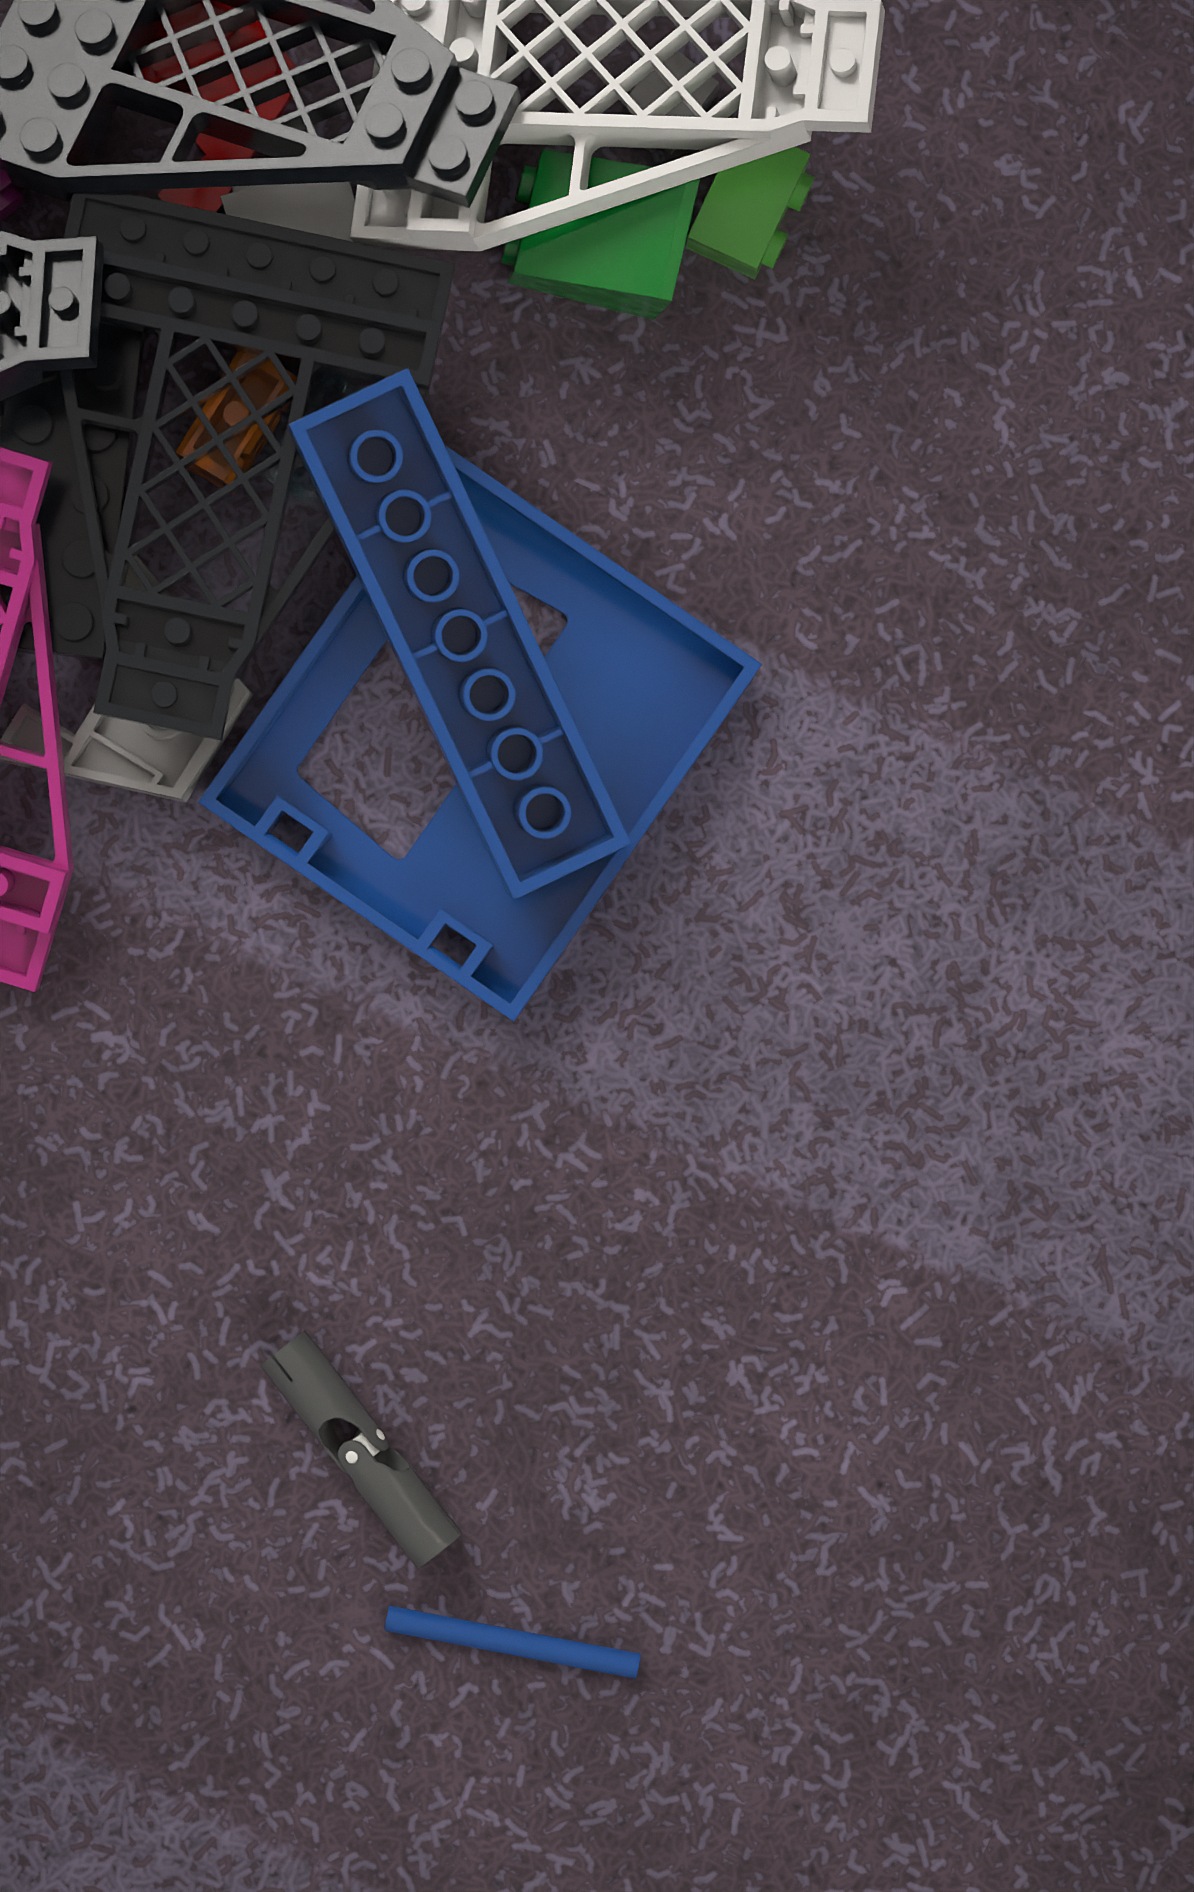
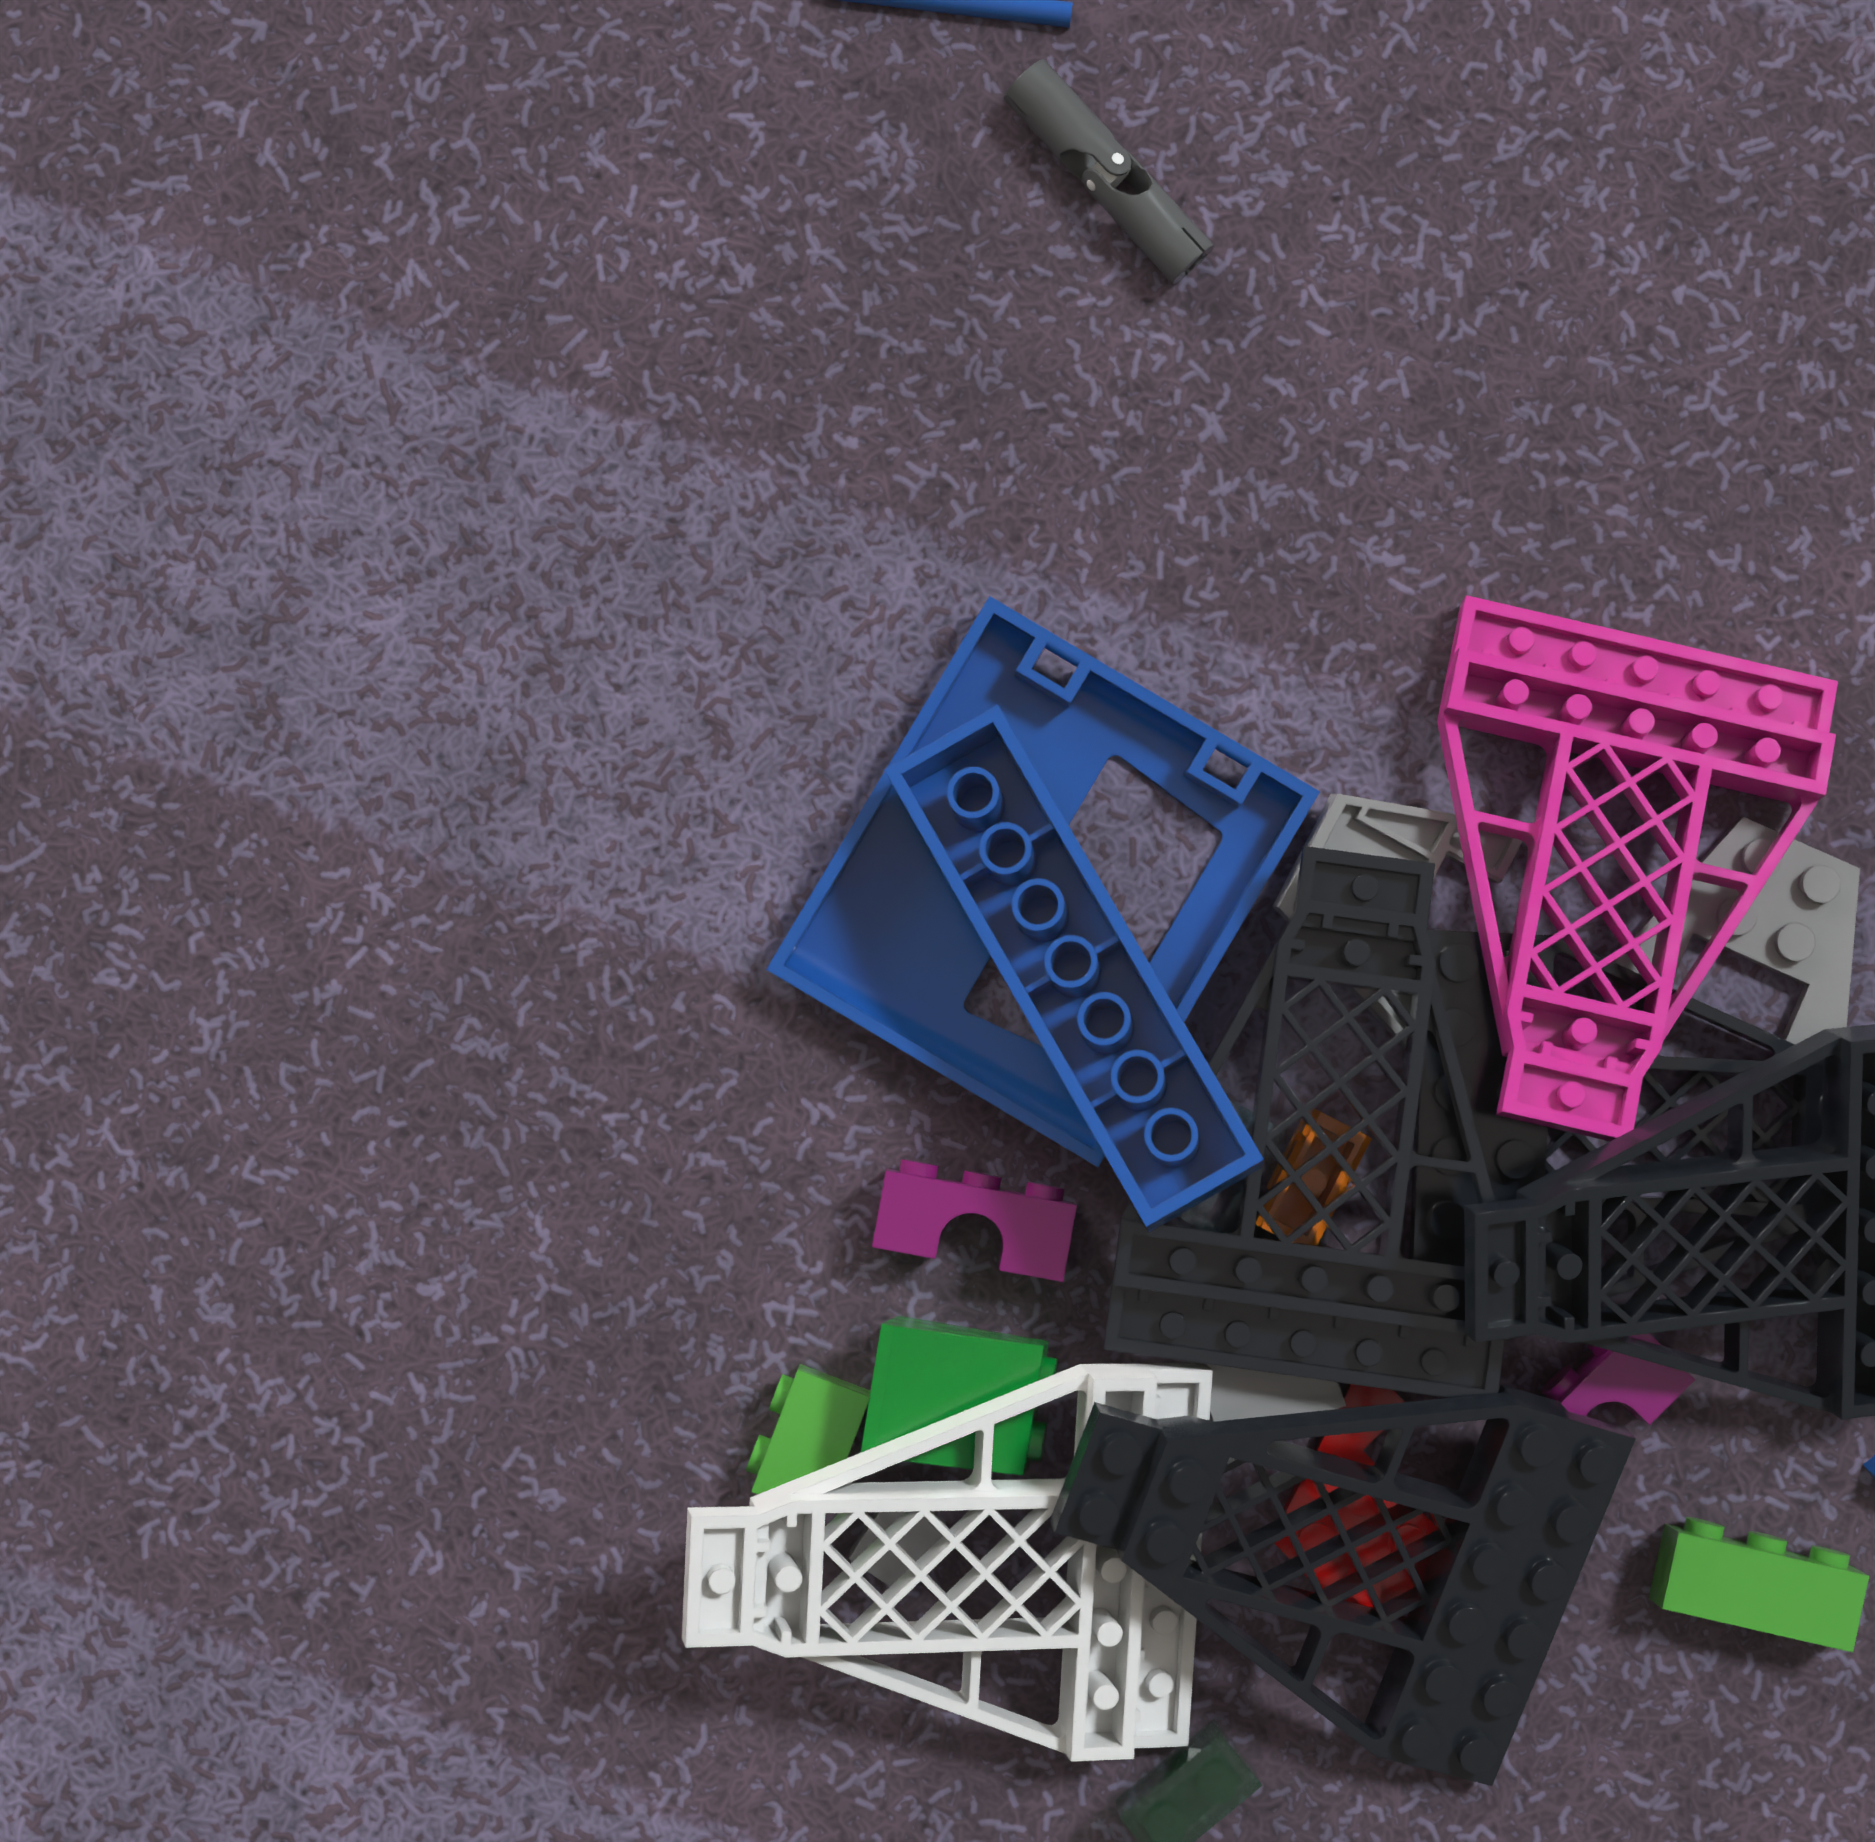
camera: 175 degrees right, 0 degrees up
(623, 424) = (1032, 1224): none -> magenta arch

